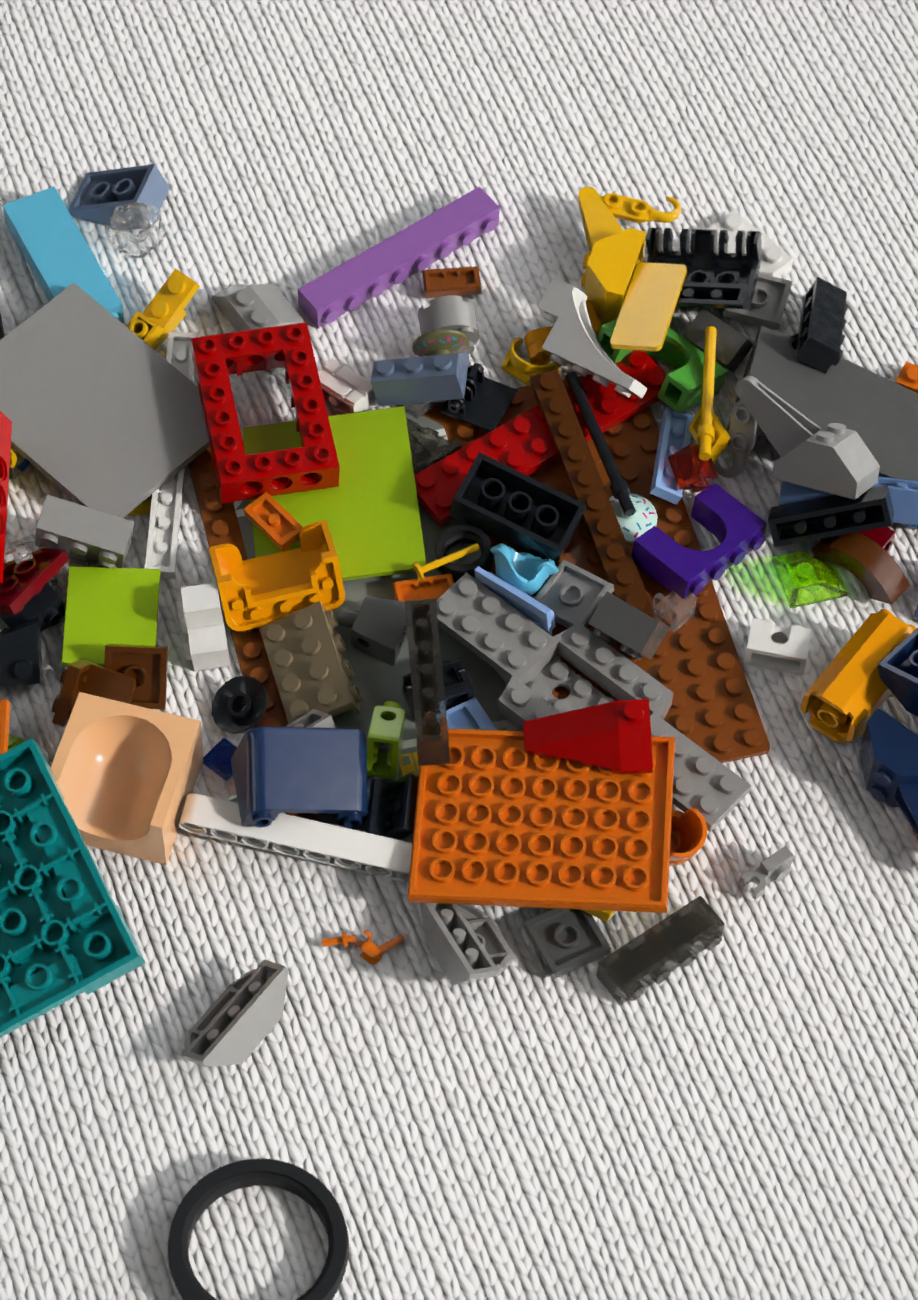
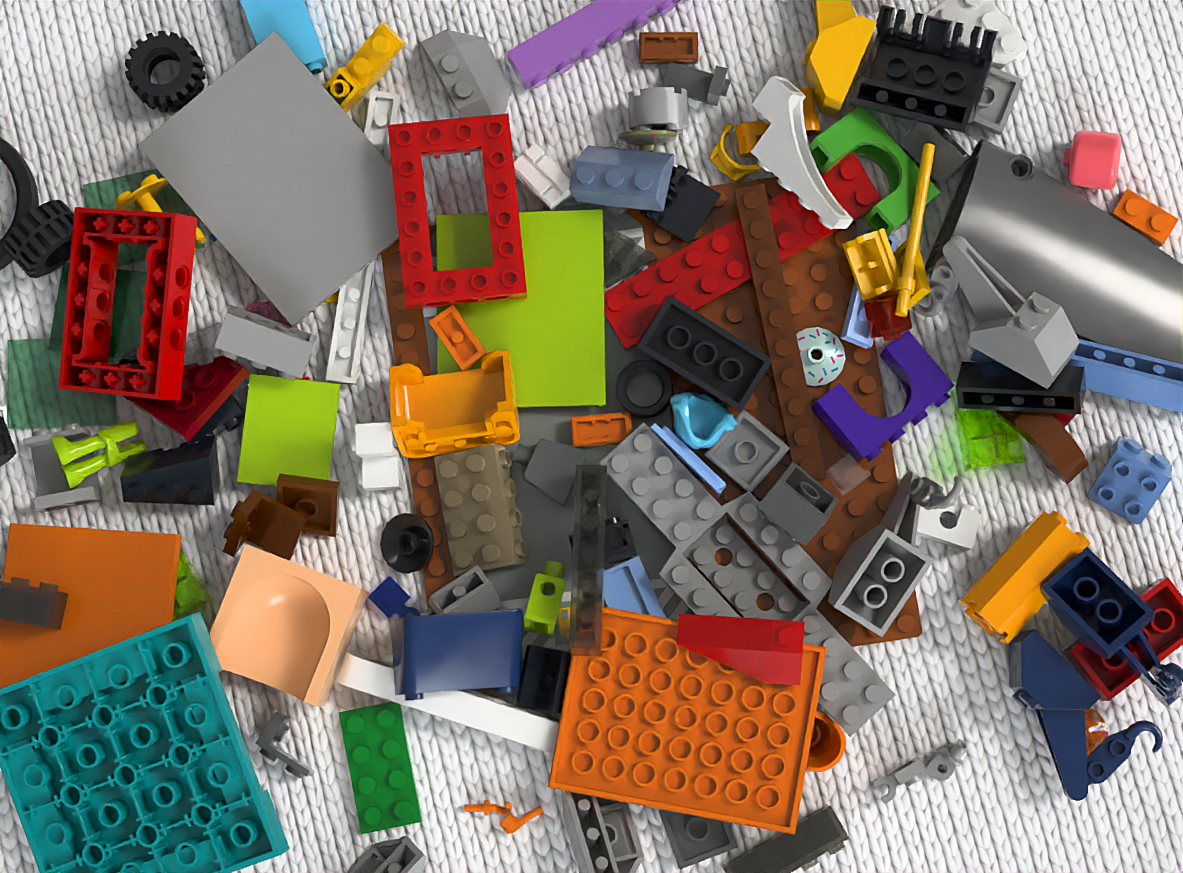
camera: 10 degrees right, 25 degrees up
(118, 883) = (276, 730): none -> dark grey bracket
(229, 912) = (380, 767): none -> green plate
(420, 570) = (623, 402): yellow piece -> none
(492, 310) = (699, 84): none -> dark grey bracket
(618, 485) = (810, 331): black bar -> none
(648, 306) = (867, 118): yellow piece -> none
(670, 424) = (872, 264): none -> yellow hinge
(724, 664) = (884, 563): none -> light grey slope
(812, 850) = (949, 757): none -> light grey piece
(822, 325) = (1045, 148): black brick -> none
(869, 336) = (1093, 159): none -> coral head

